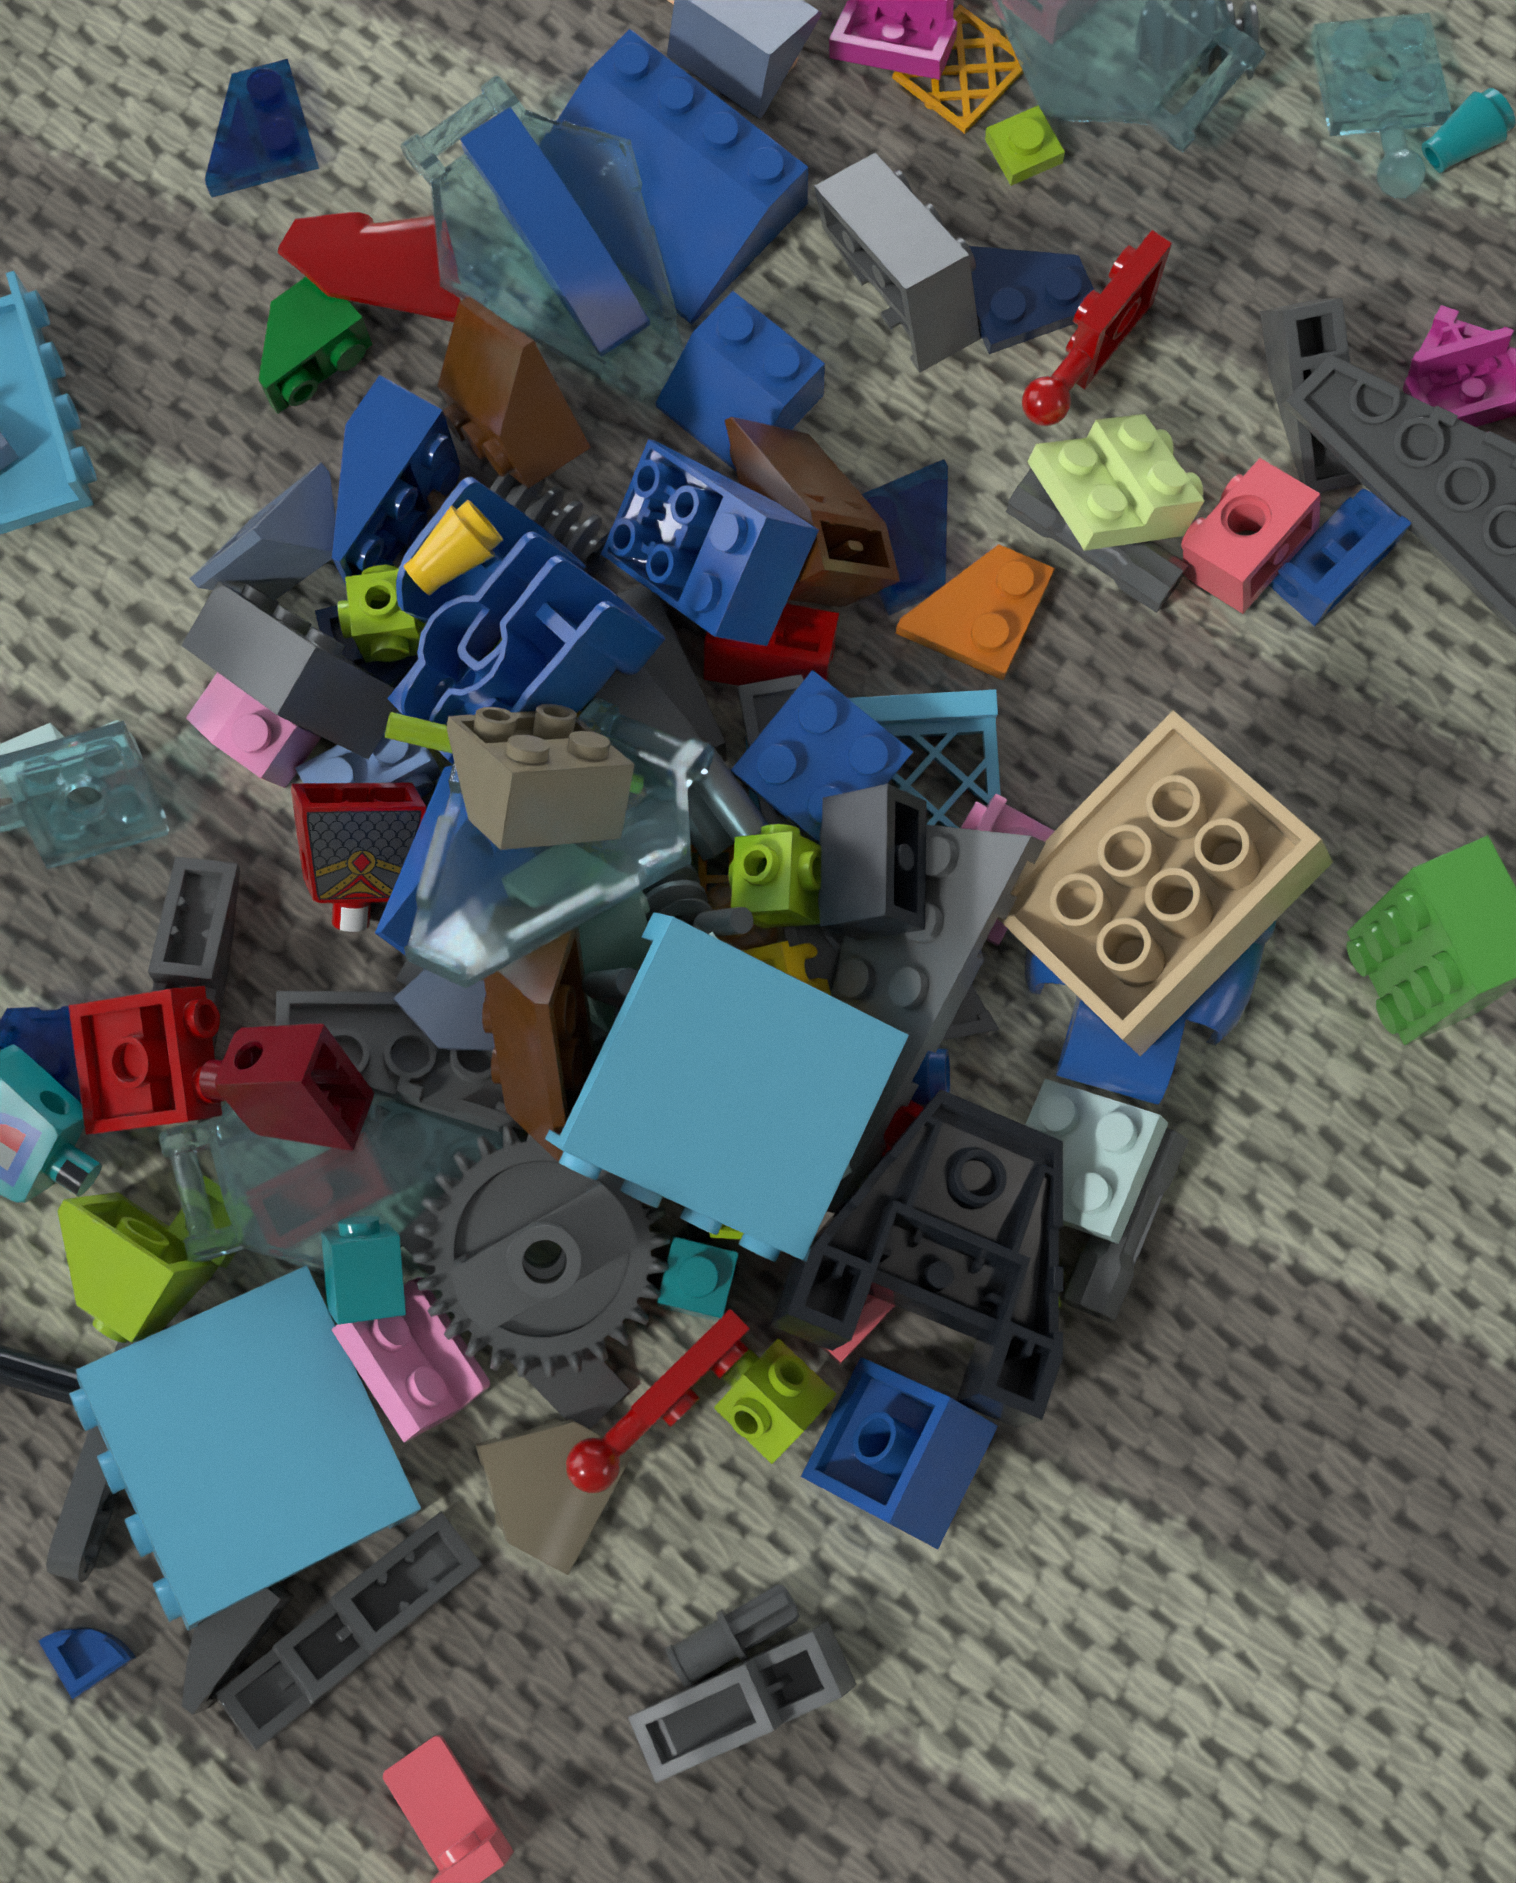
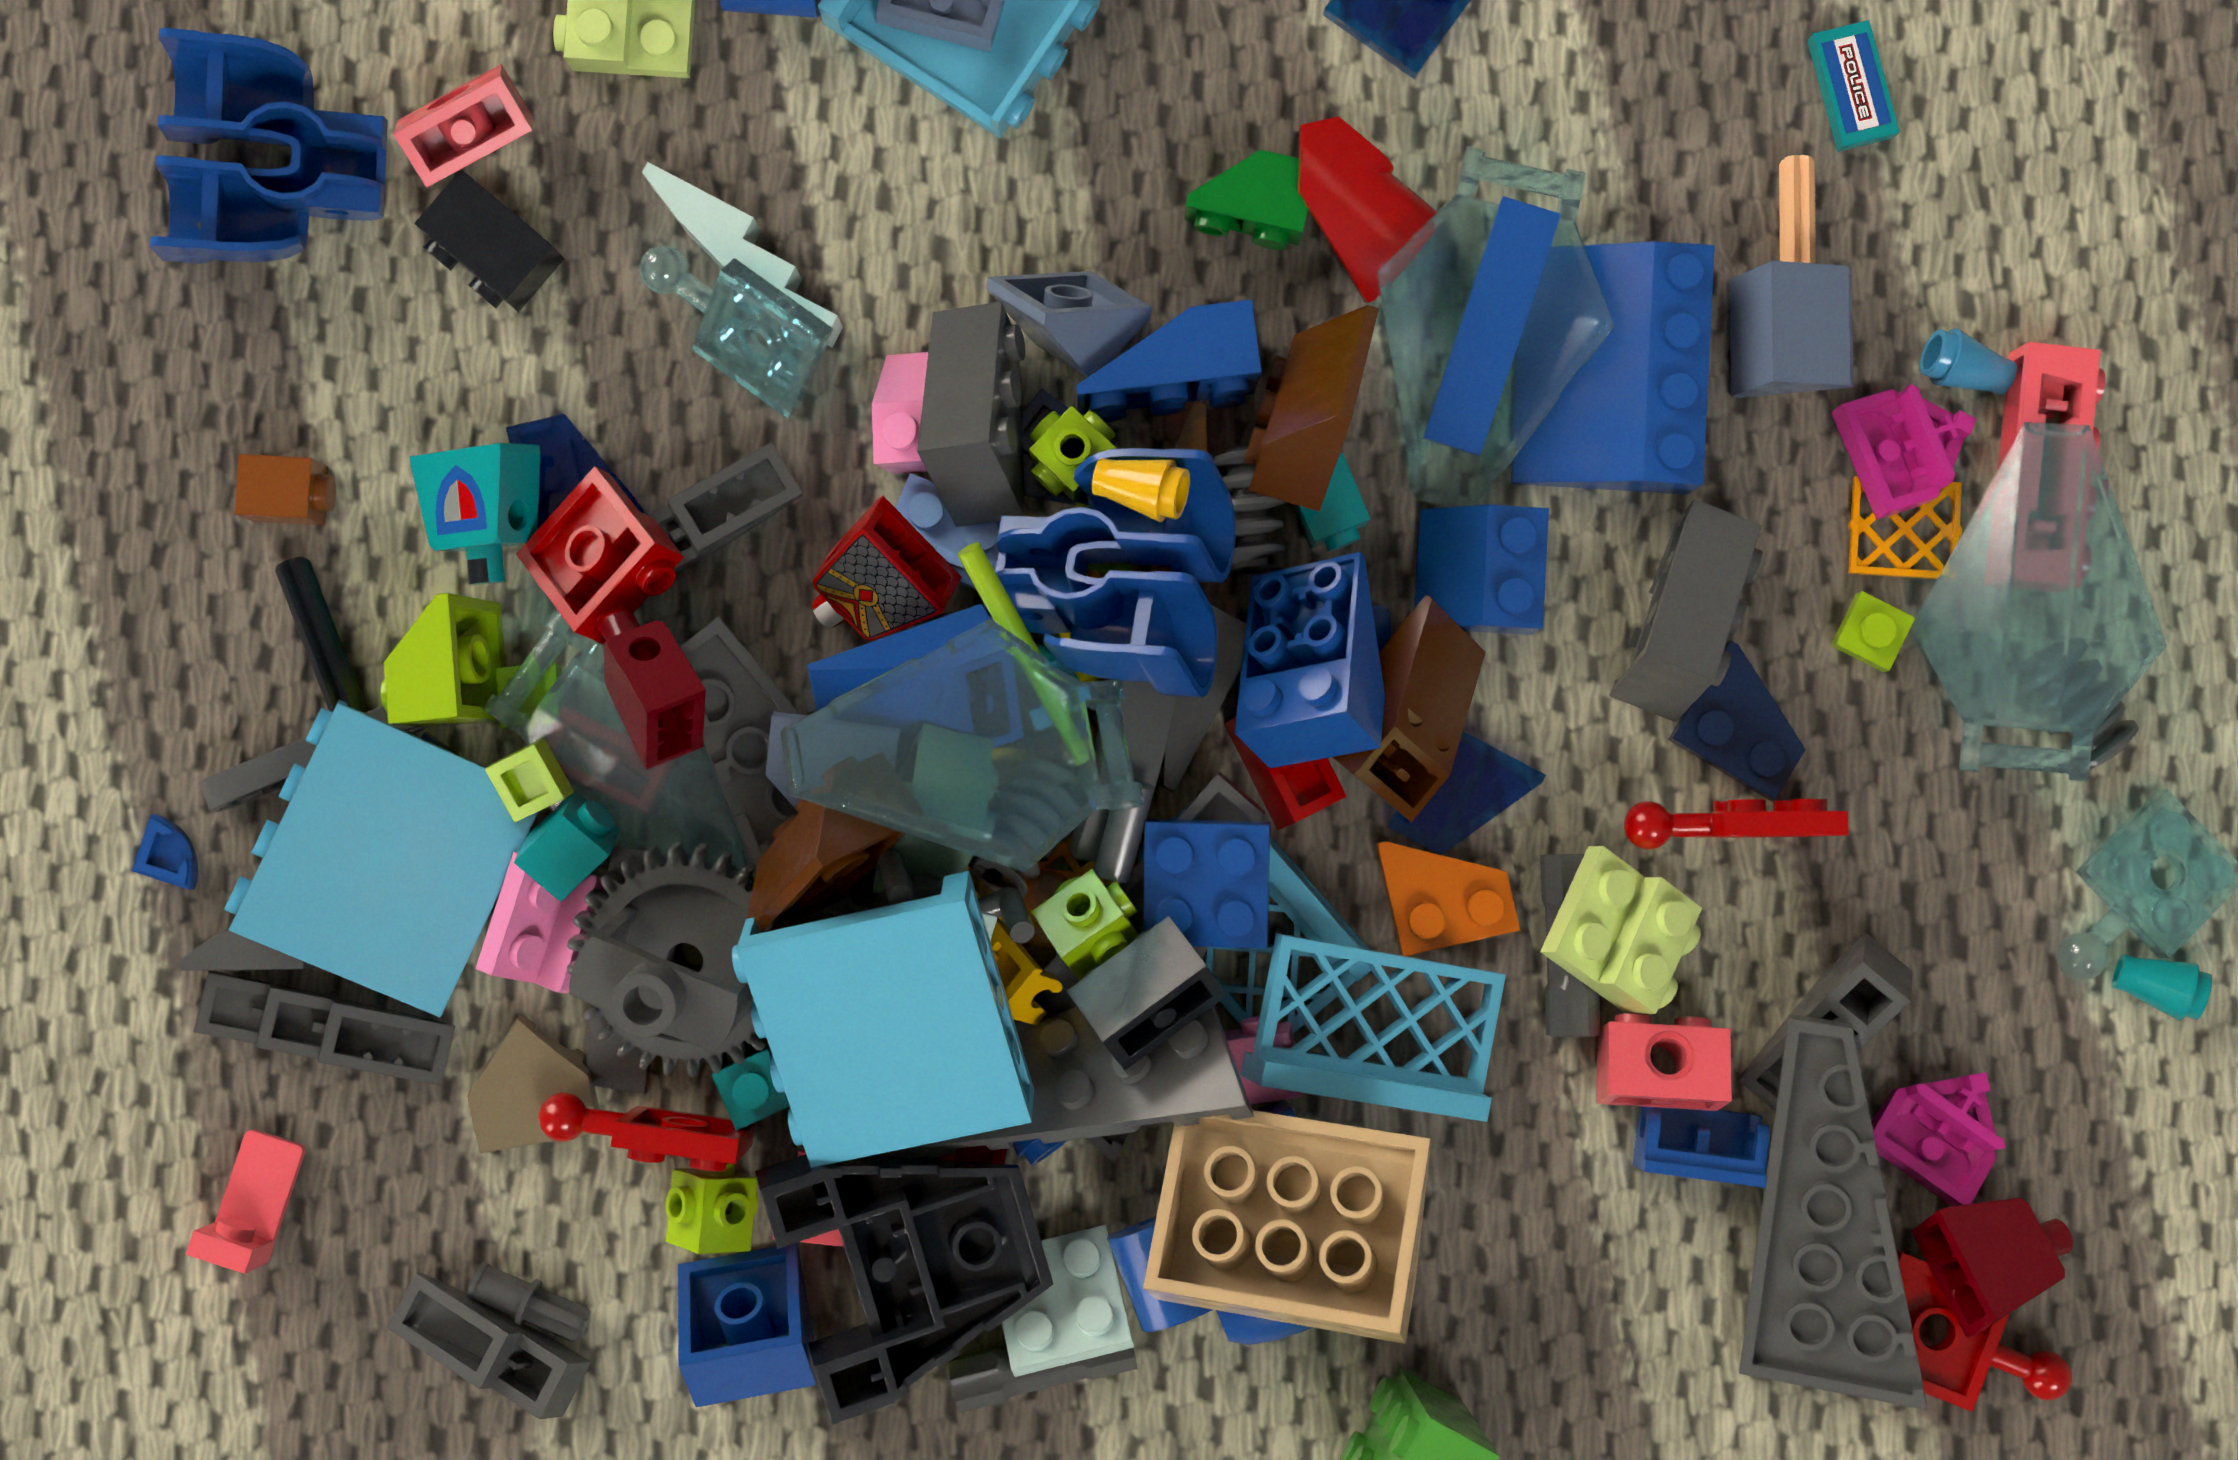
camera: 40 degrees right, 10 degrees up
(280, 1260) = (529, 780): none -> lime plate
(539, 777) = (1005, 704): dark tan slope -> none
(601, 471) = (1340, 512): none -> teal brick
(1072, 773) = (1370, 1081): none -> medium azure fence

